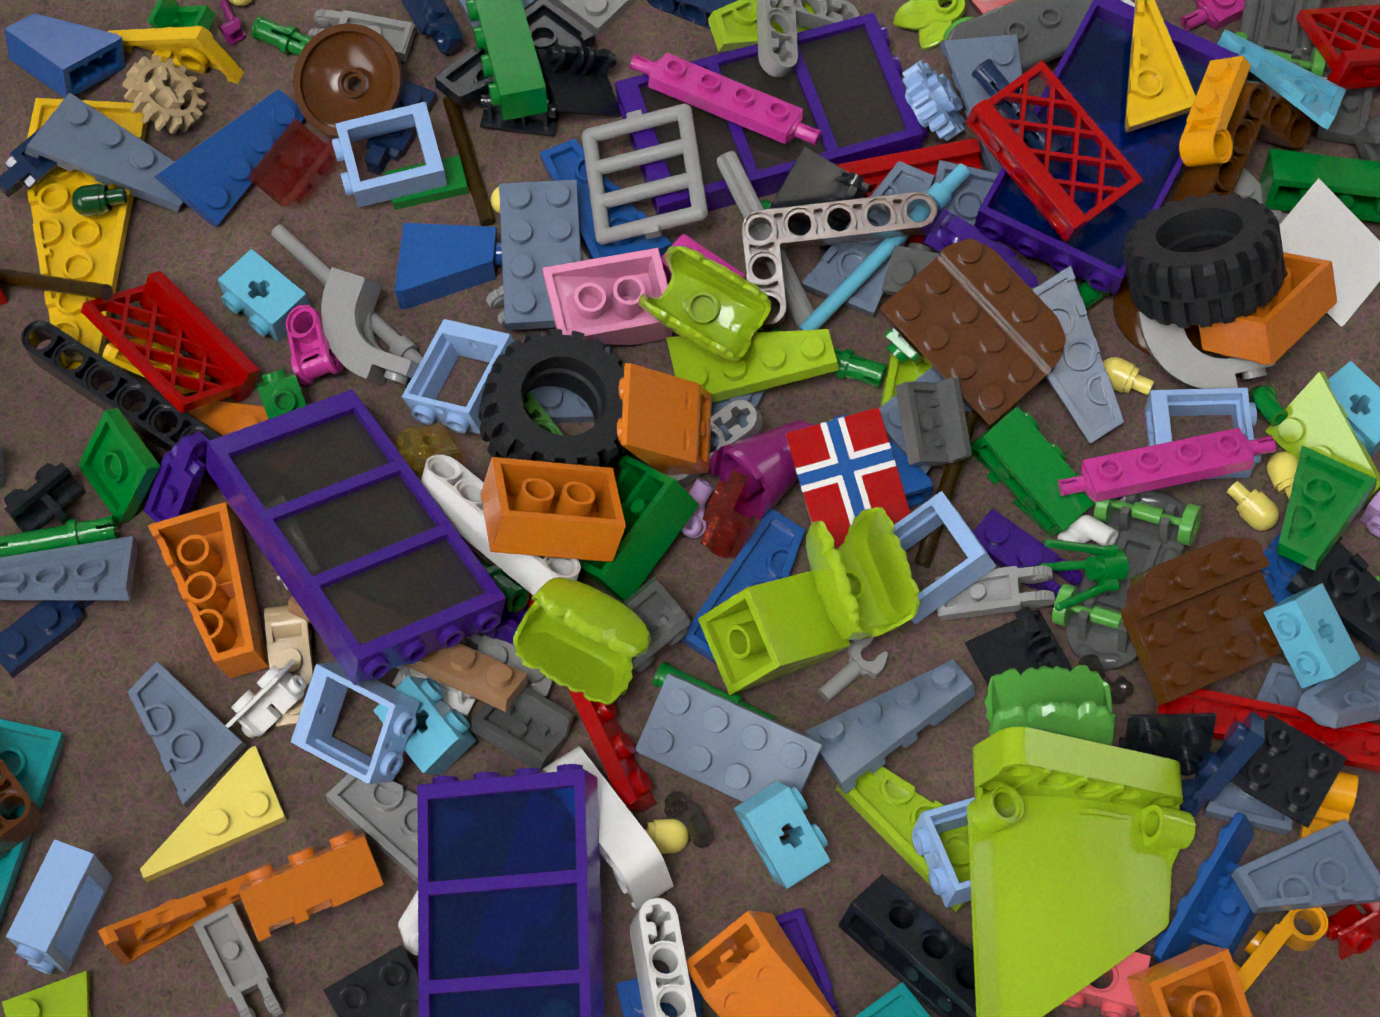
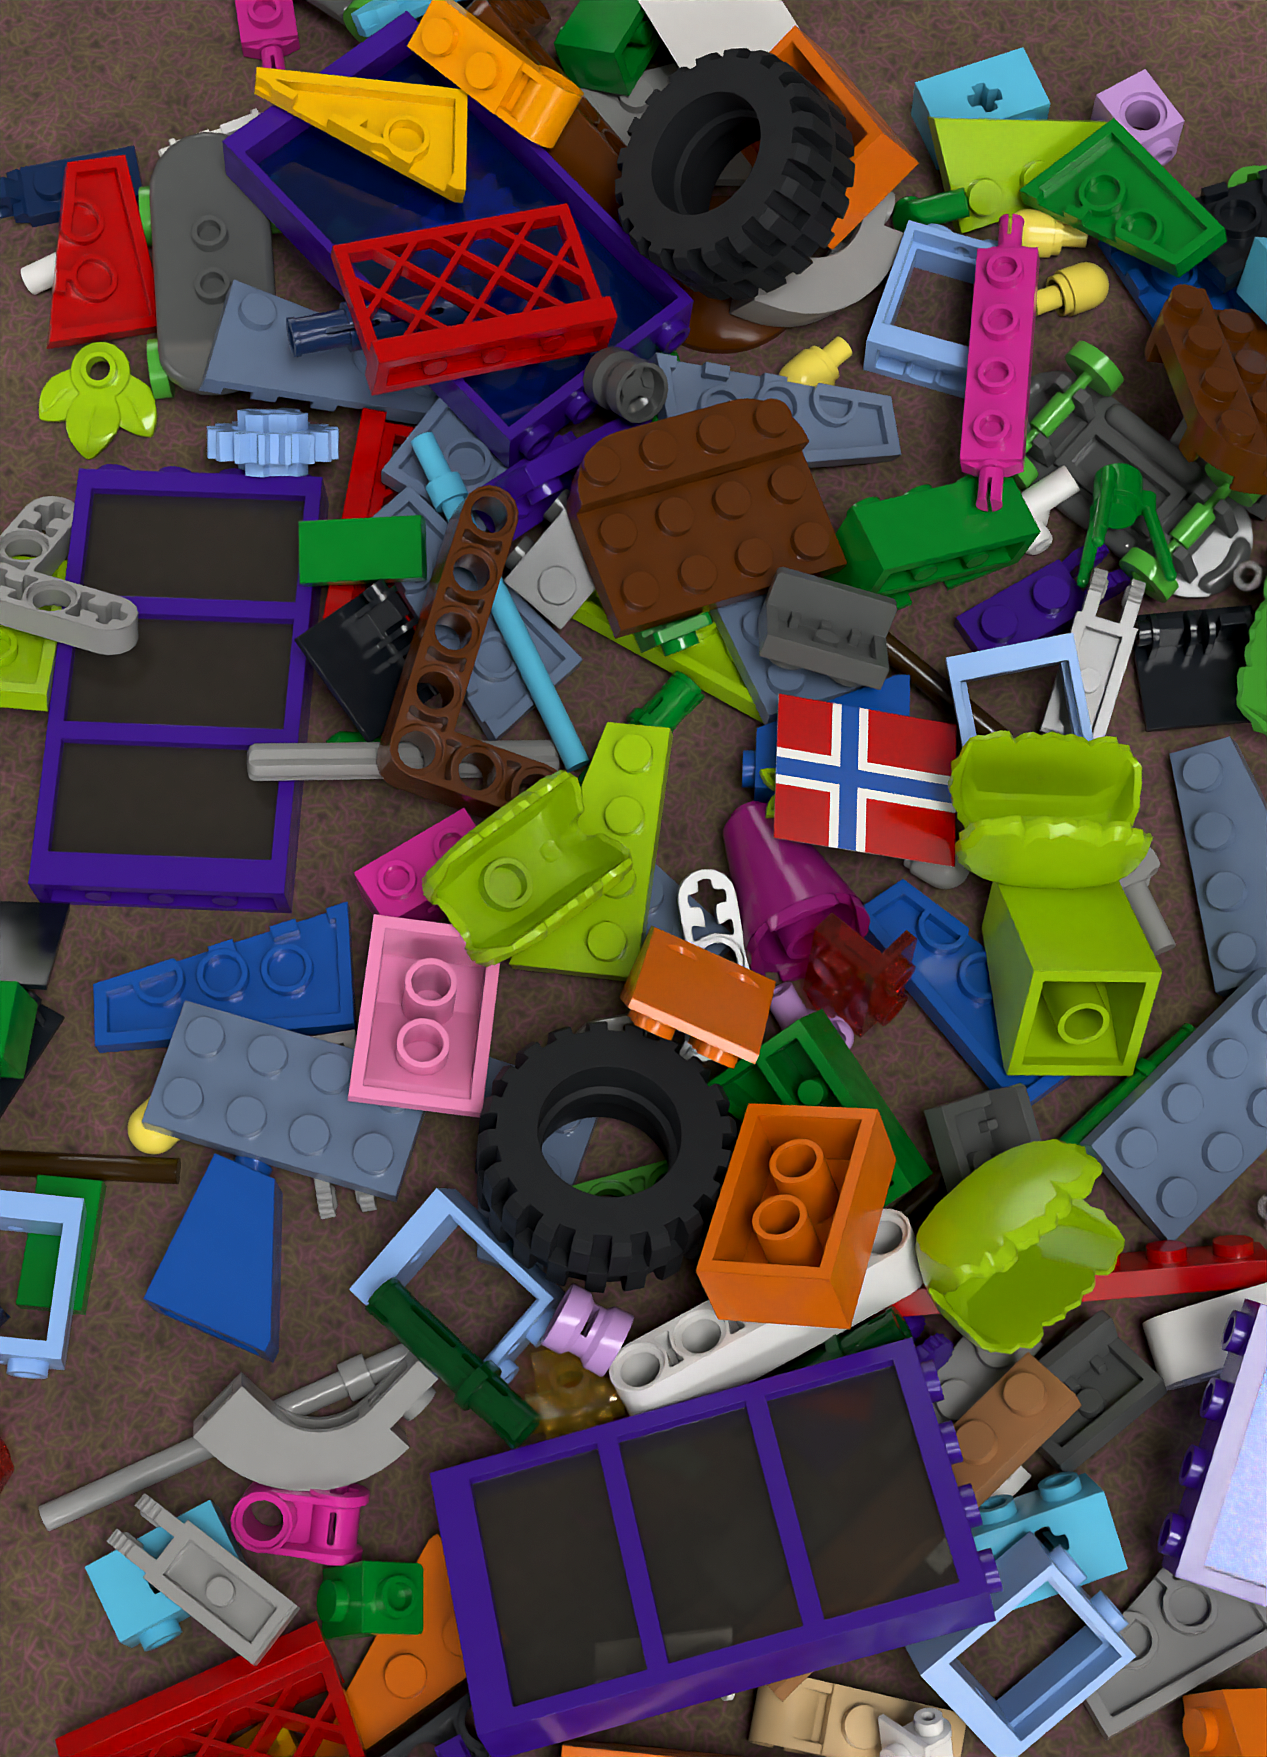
camera: 70 degrees left, 5 degrees up
(258, 303) = (210, 1584): none -> light grey hinge
(408, 391) = (472, 1380): none -> dark green pin
(455, 434) = (601, 1337): none -> lavender wheel
(692, 179) = (235, 977): light grey bar -> none
(726, 98) = (139, 729): dark pink plate -> none
(879, 163) = (362, 550): none -> green tile
(1038, 265) = (625, 384): none -> dark grey wheel

